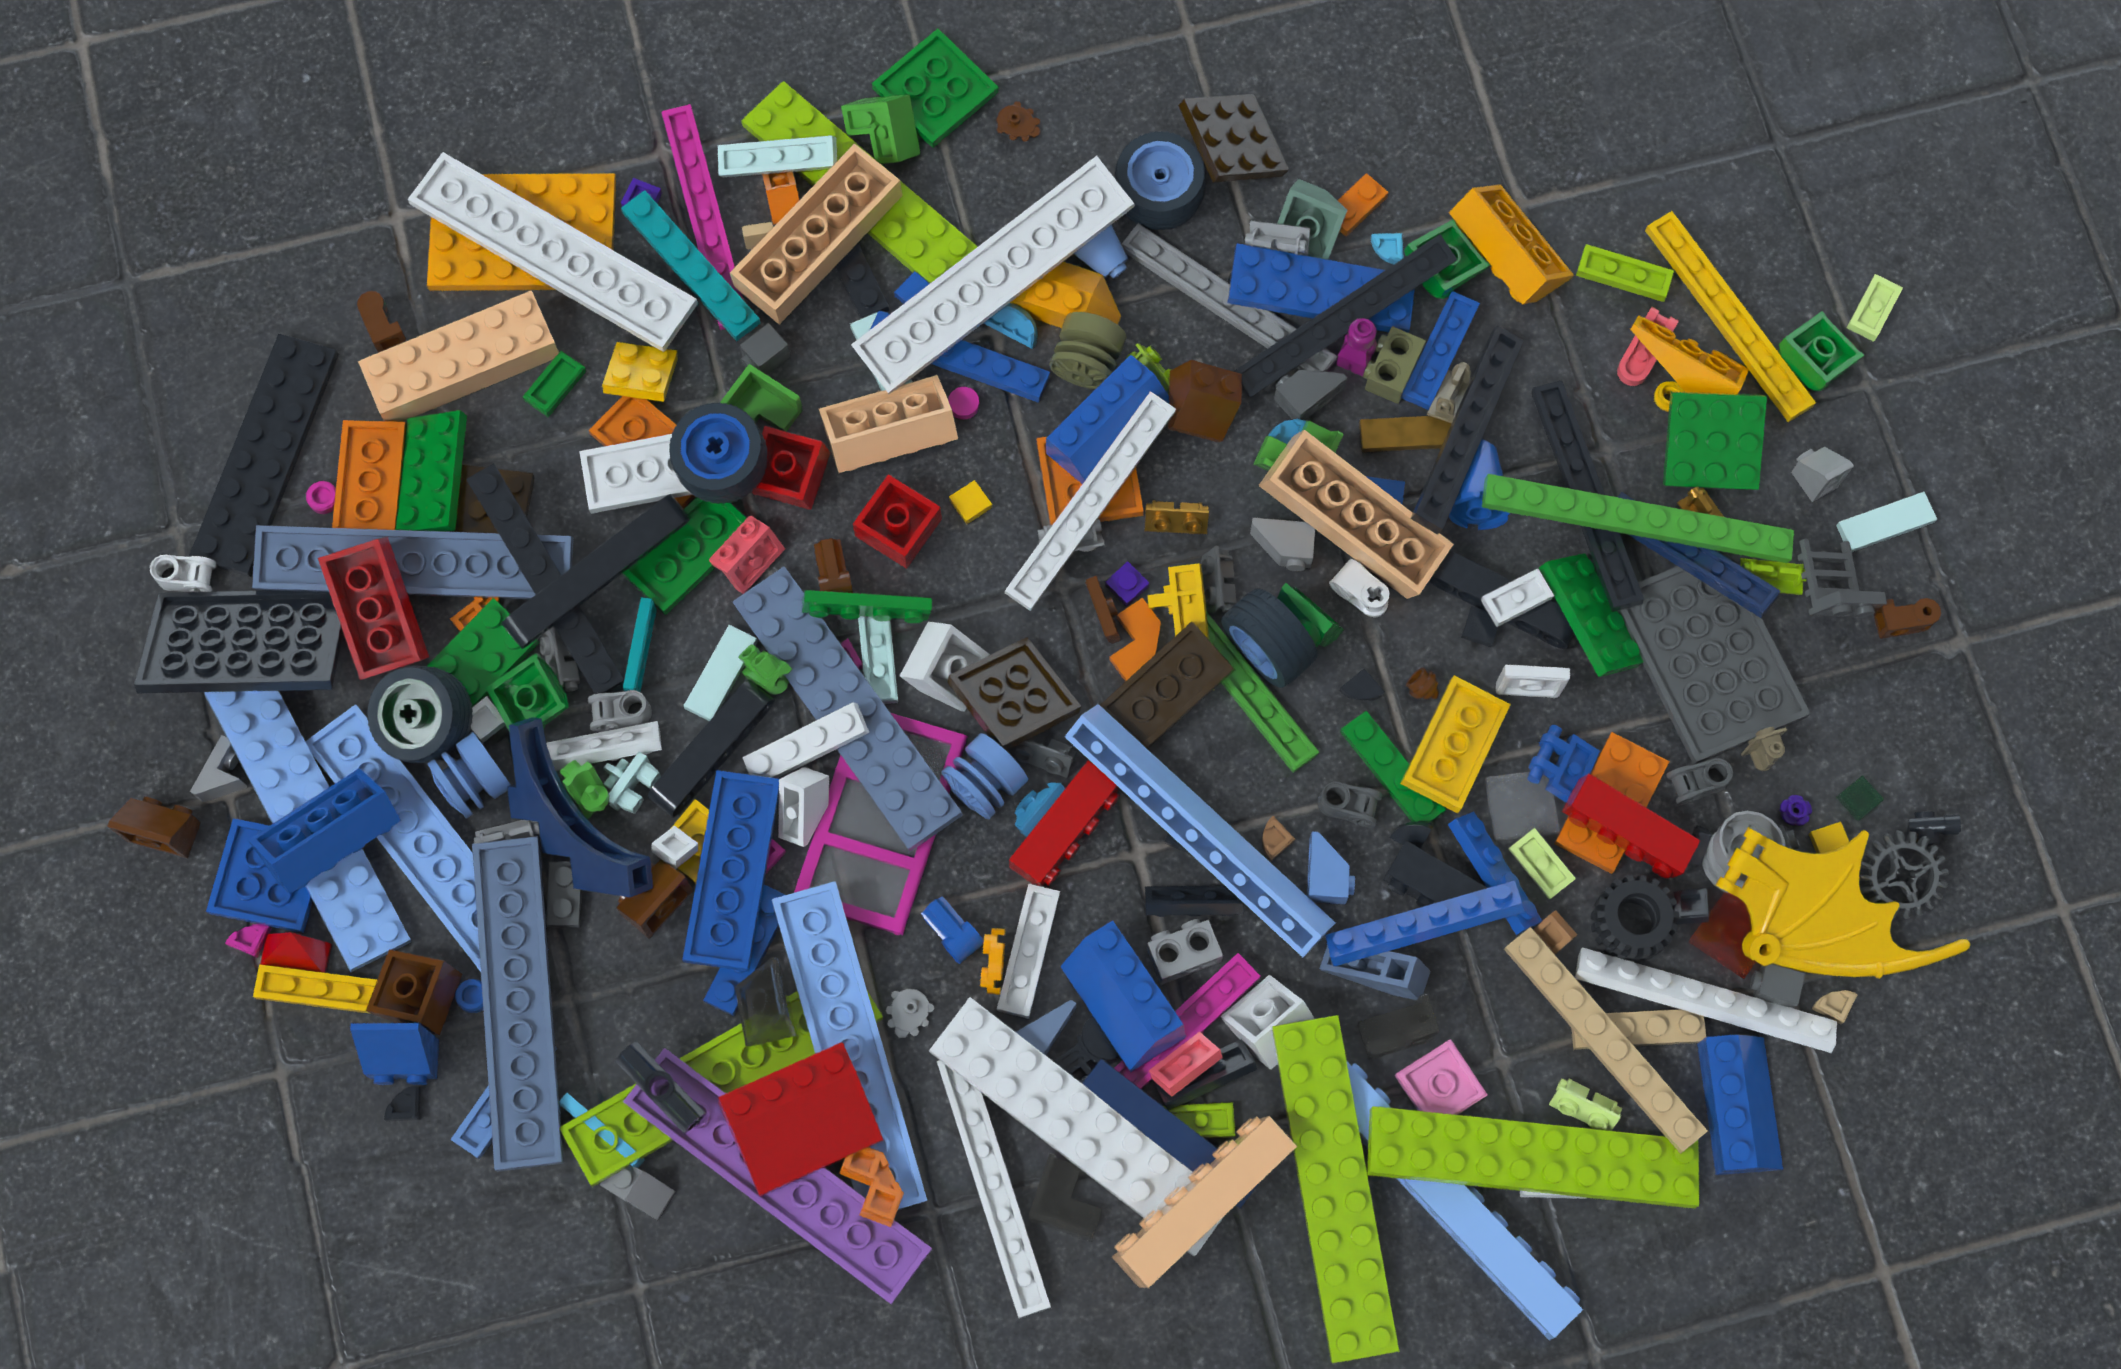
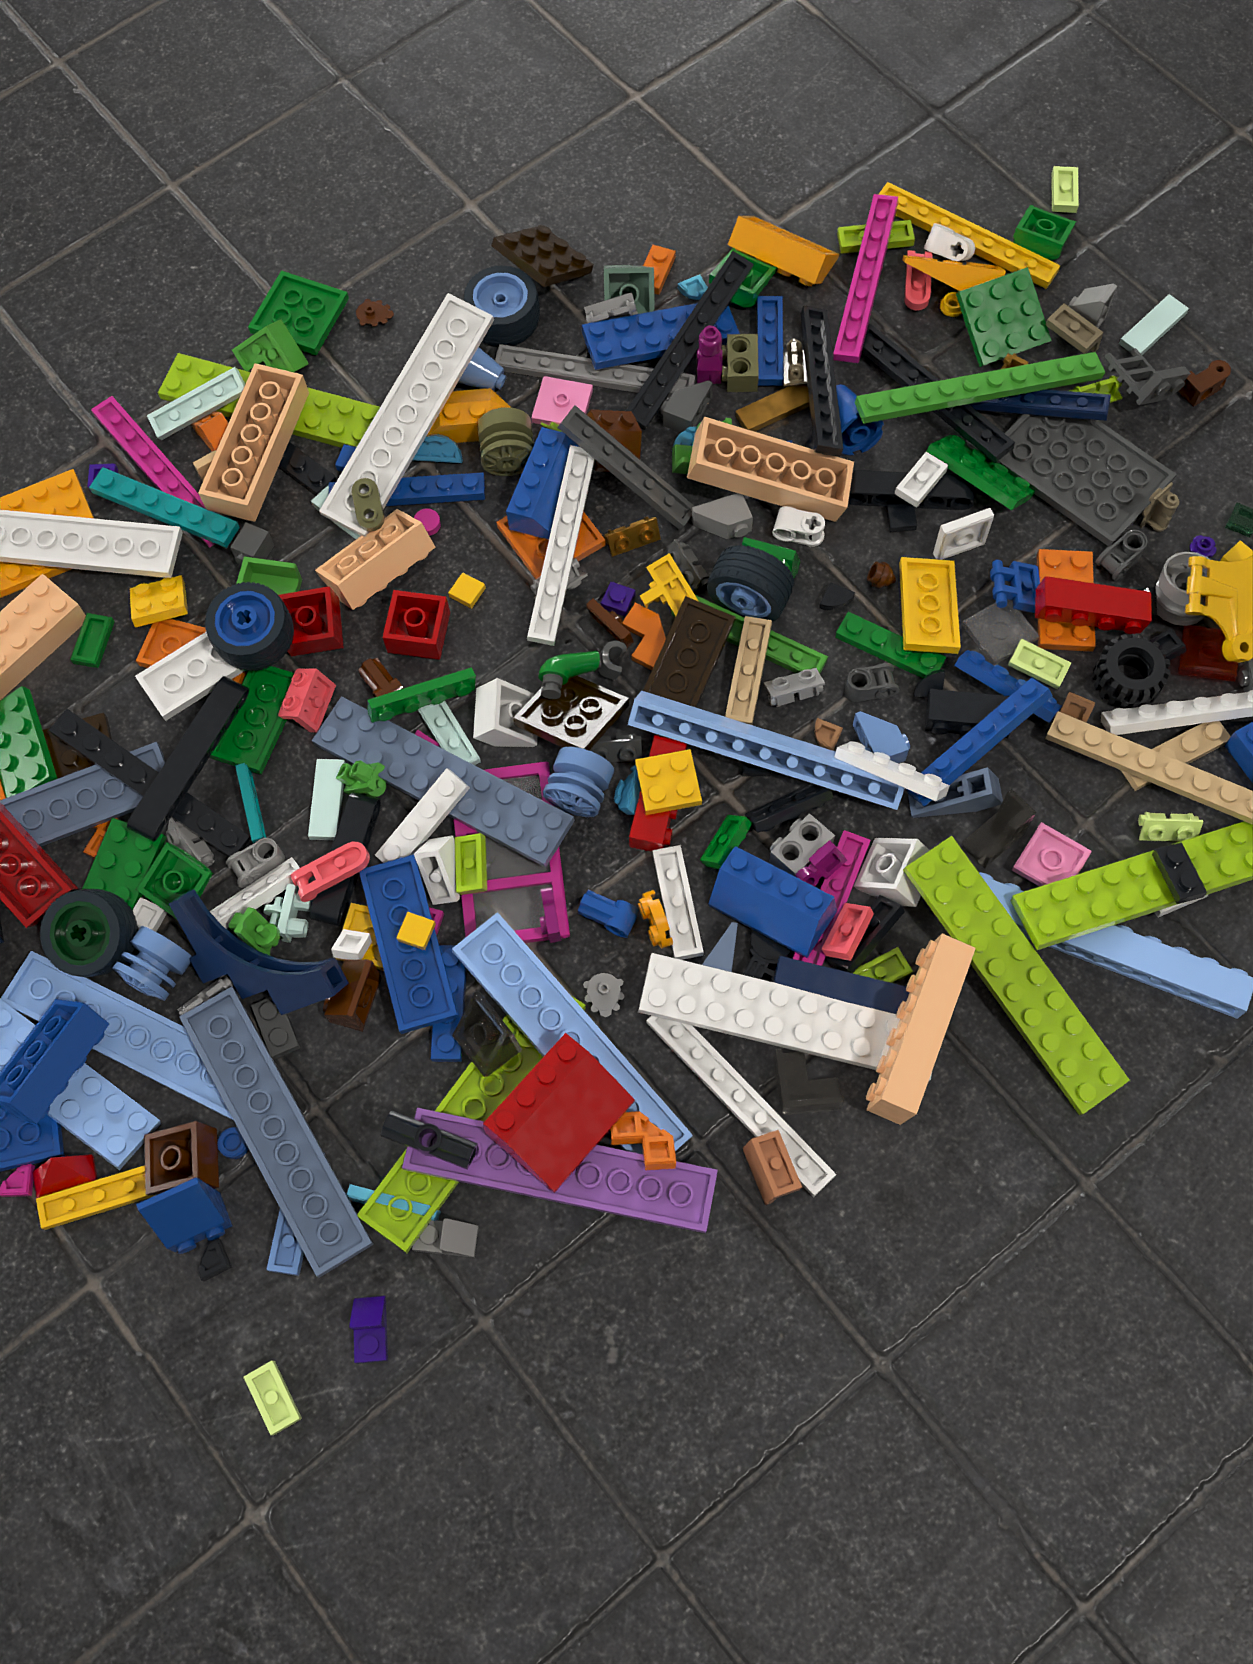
camera: 20 degrees left, 5 degrees down
(404, 1266) = (272, 1398): none -> yellowish green plate
(525, 1243) = (370, 1329): none -> dark purple slope
(688, 757) = (330, 869): none -> coral plate
(744, 863) = (416, 931): none -> yellow tile
(834, 814) = (470, 864): none -> lime plate
(886, 914) = (549, 922): none -> magenta plate
(906, 361) = (368, 503): none -> olive plate
(990, 1269) = (771, 1166): none -> nougat panel
(1026, 641) = (560, 668): none -> piece
(1076, 819) = (668, 782): none -> yellow plate
(1110, 907) = (728, 836): none -> green plate
(1174, 325) = (558, 398): none -> bright pink plate
(1196, 980) = (823, 863): none -> magenta plate
(1201, 443) = (626, 467): none -> dark grey plate
(1224, 731) = (748, 669): none -> tan plate
(1277, 771) = (805, 683): none -> light grey hinge
(1314, 915) = (900, 774): none -> white plate
(1559, 1162) = (1179, 873): none -> black plate
(1582, 324) = (865, 279): none -> dark pink plate
(1700, 321) = (945, 243): none -> white piece
(1787, 491) = (1075, 329): none -> dark tan panel

